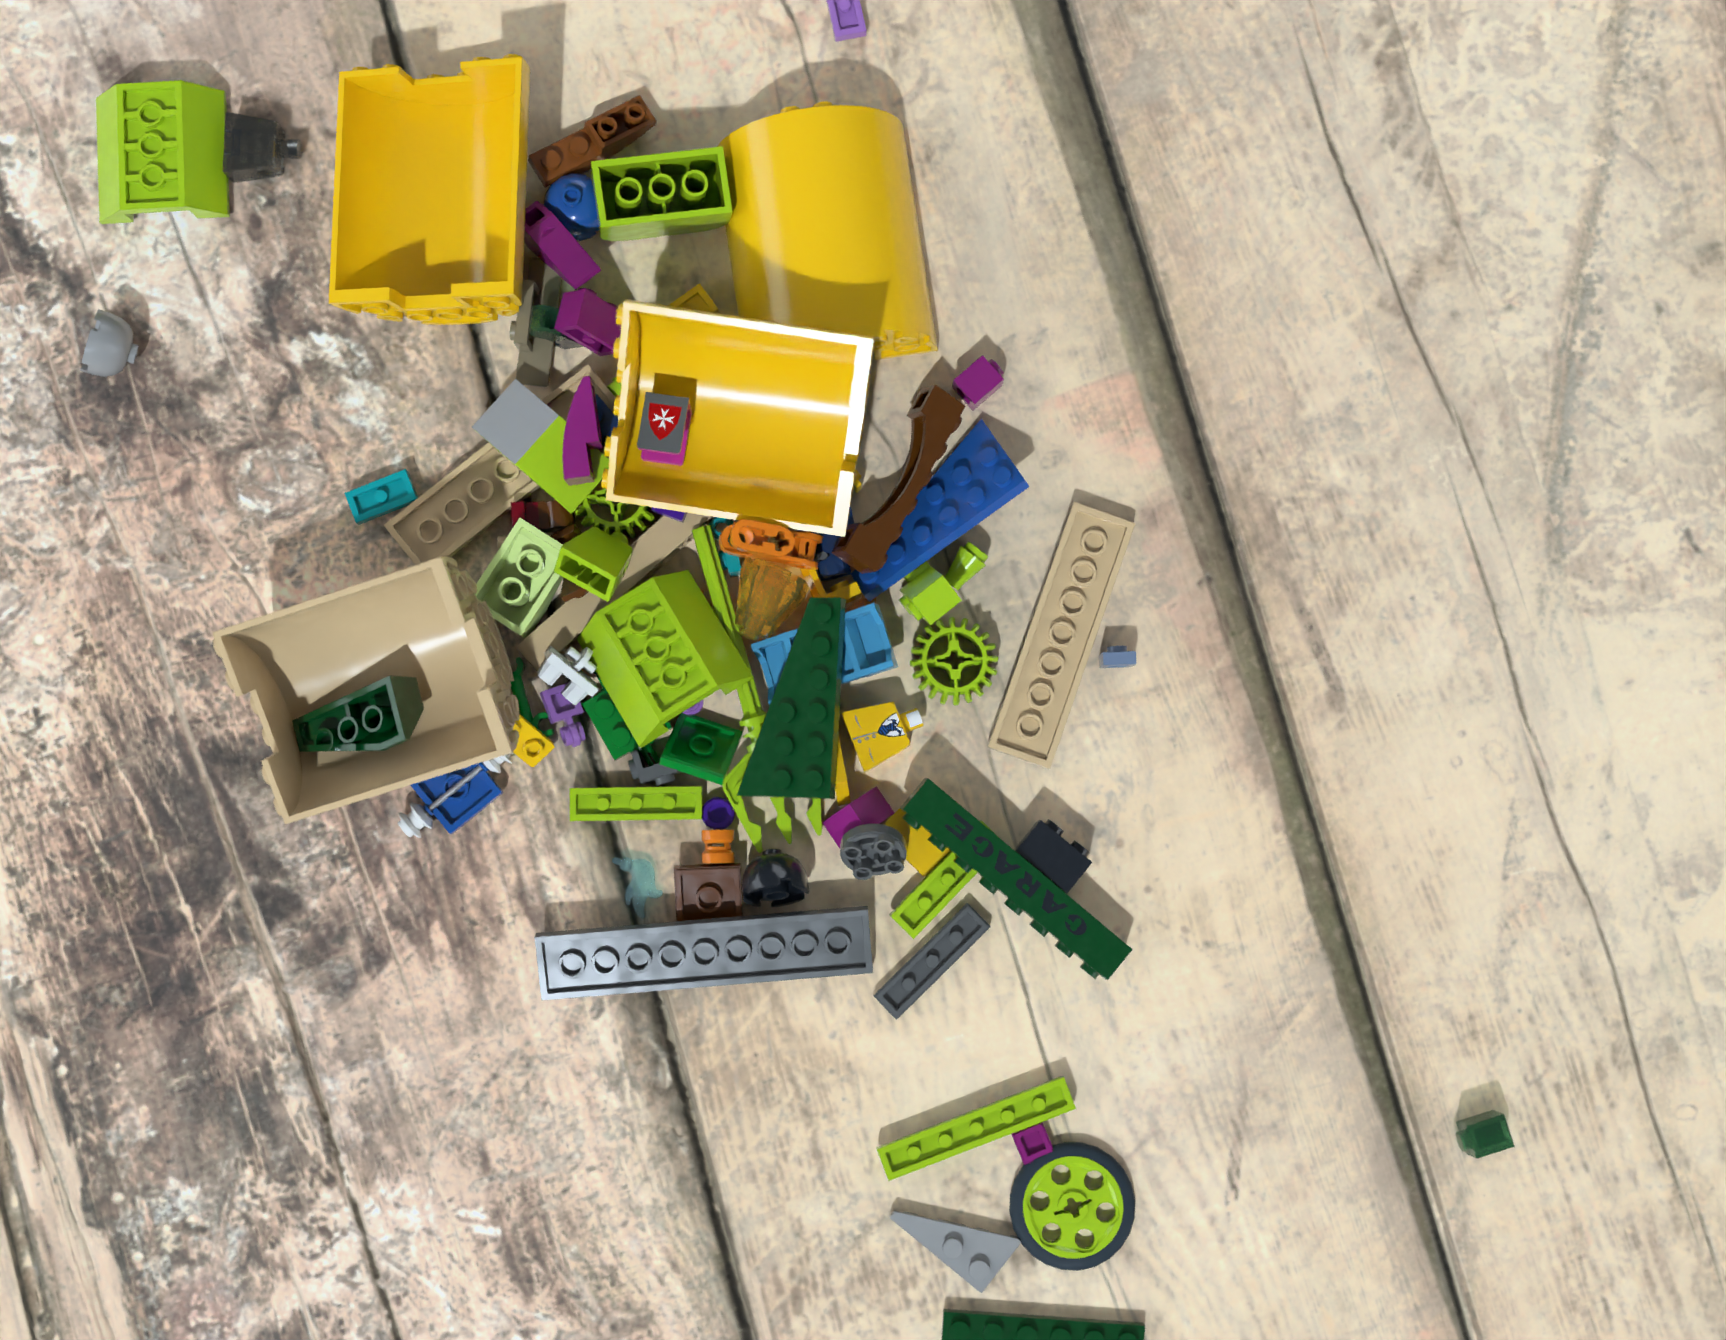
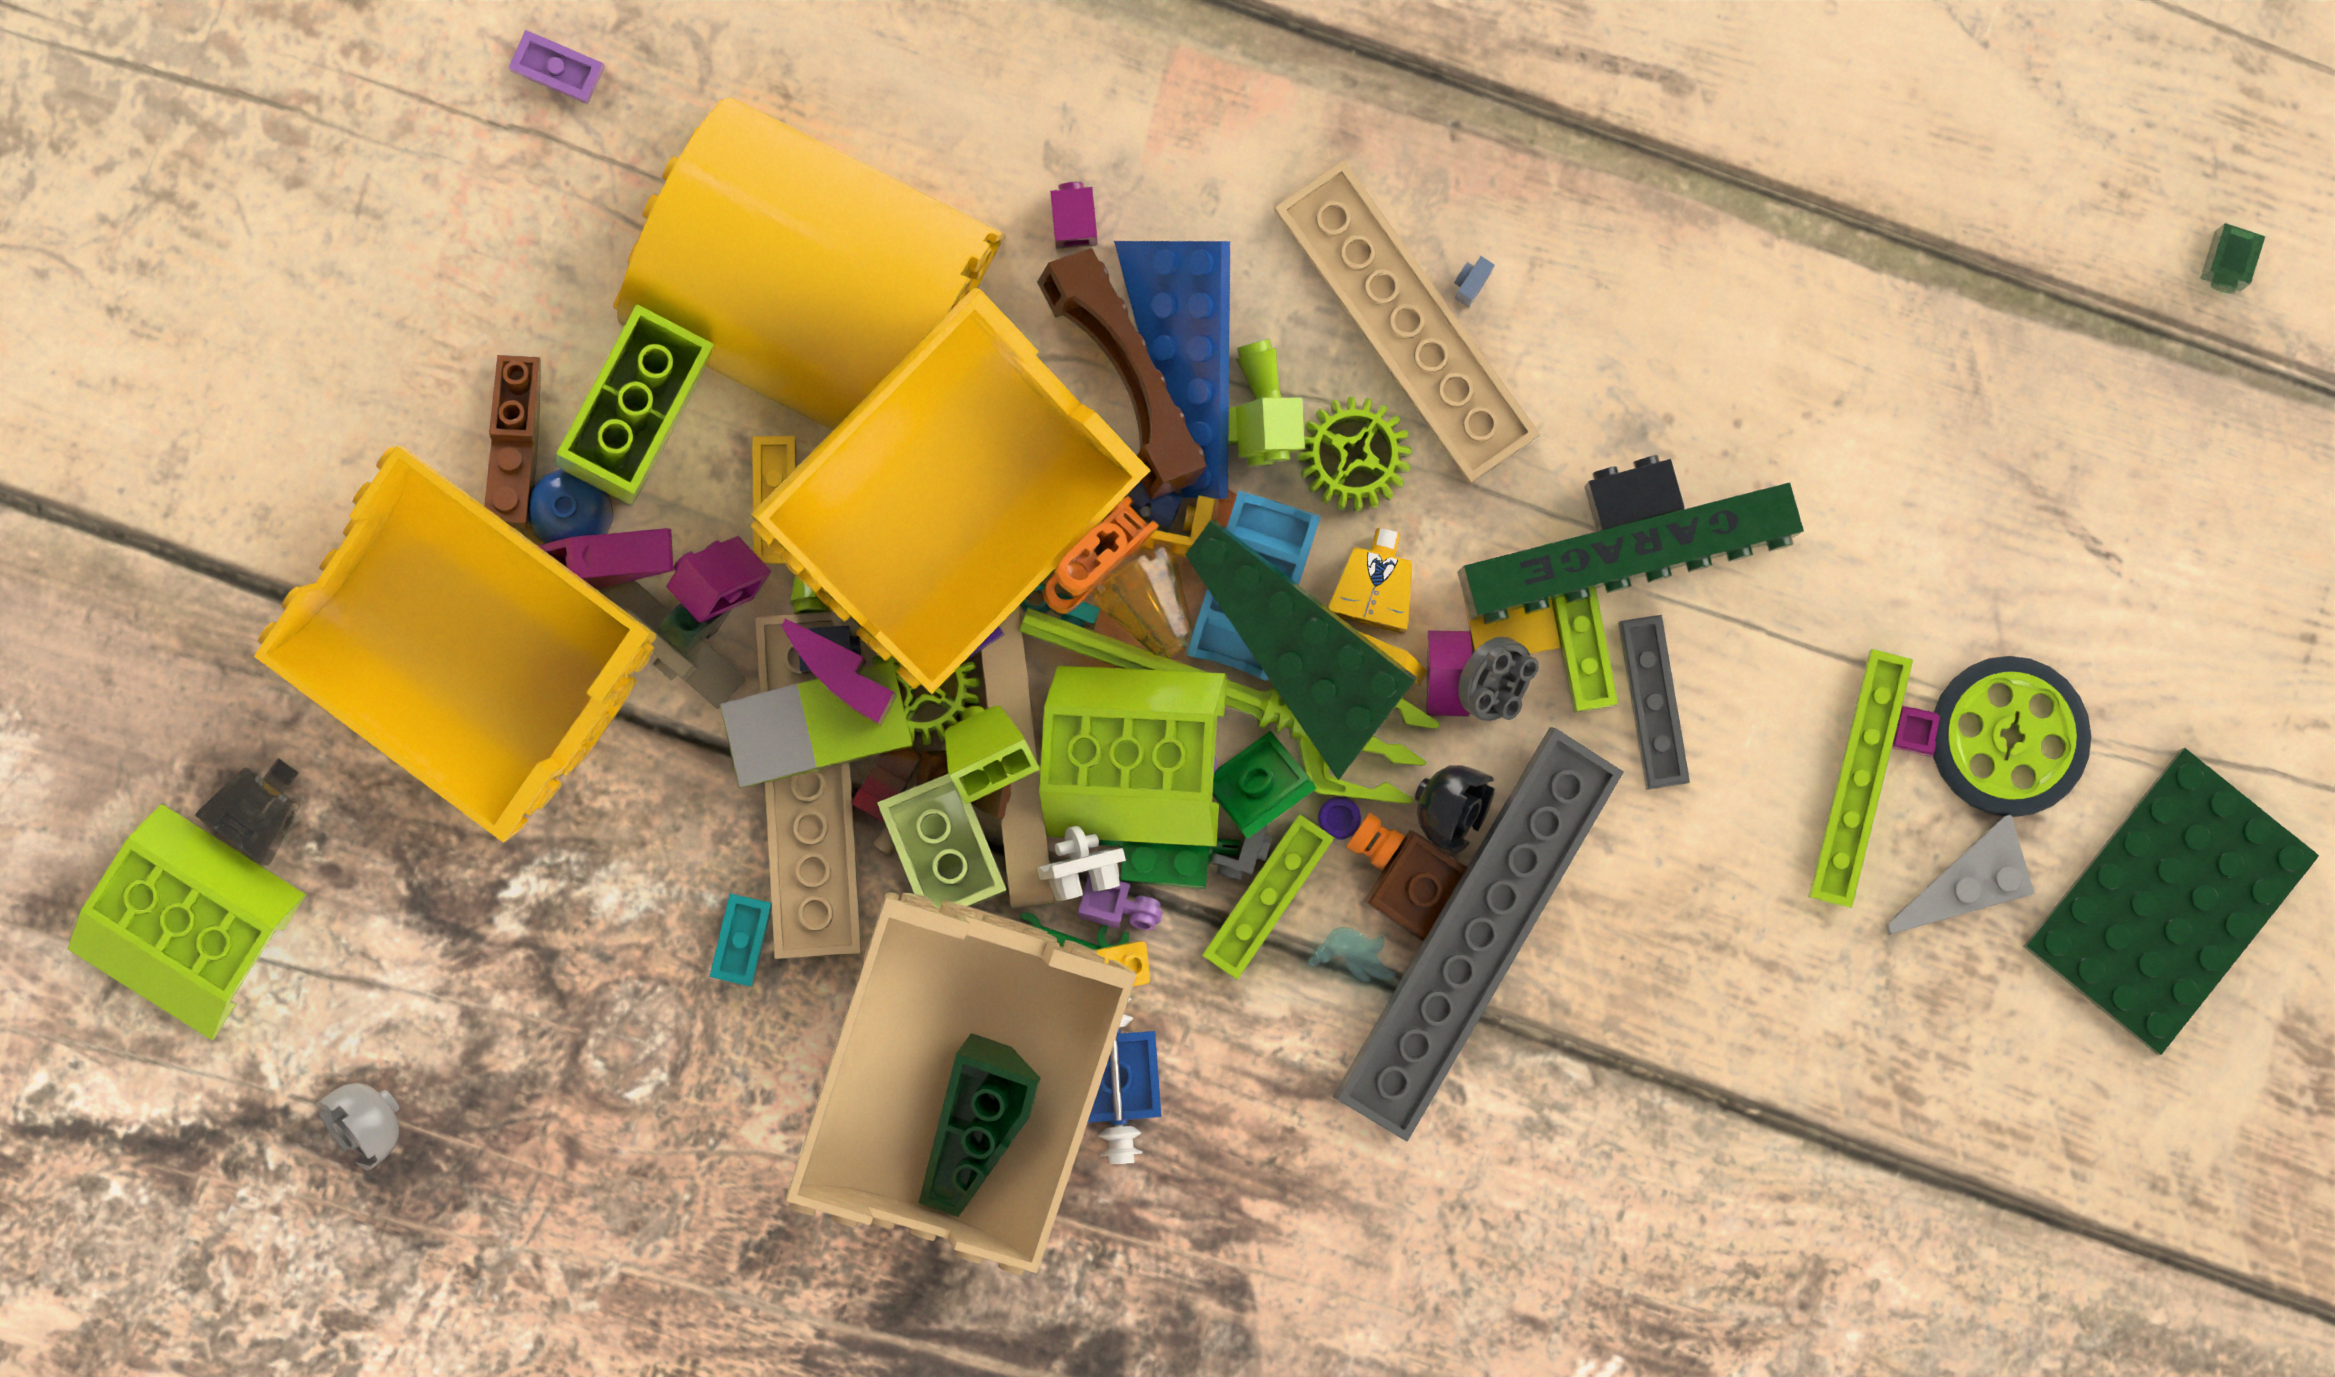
camera: 55 degrees left, 0 degrees up
(664, 428) = (895, 580): piece -> none

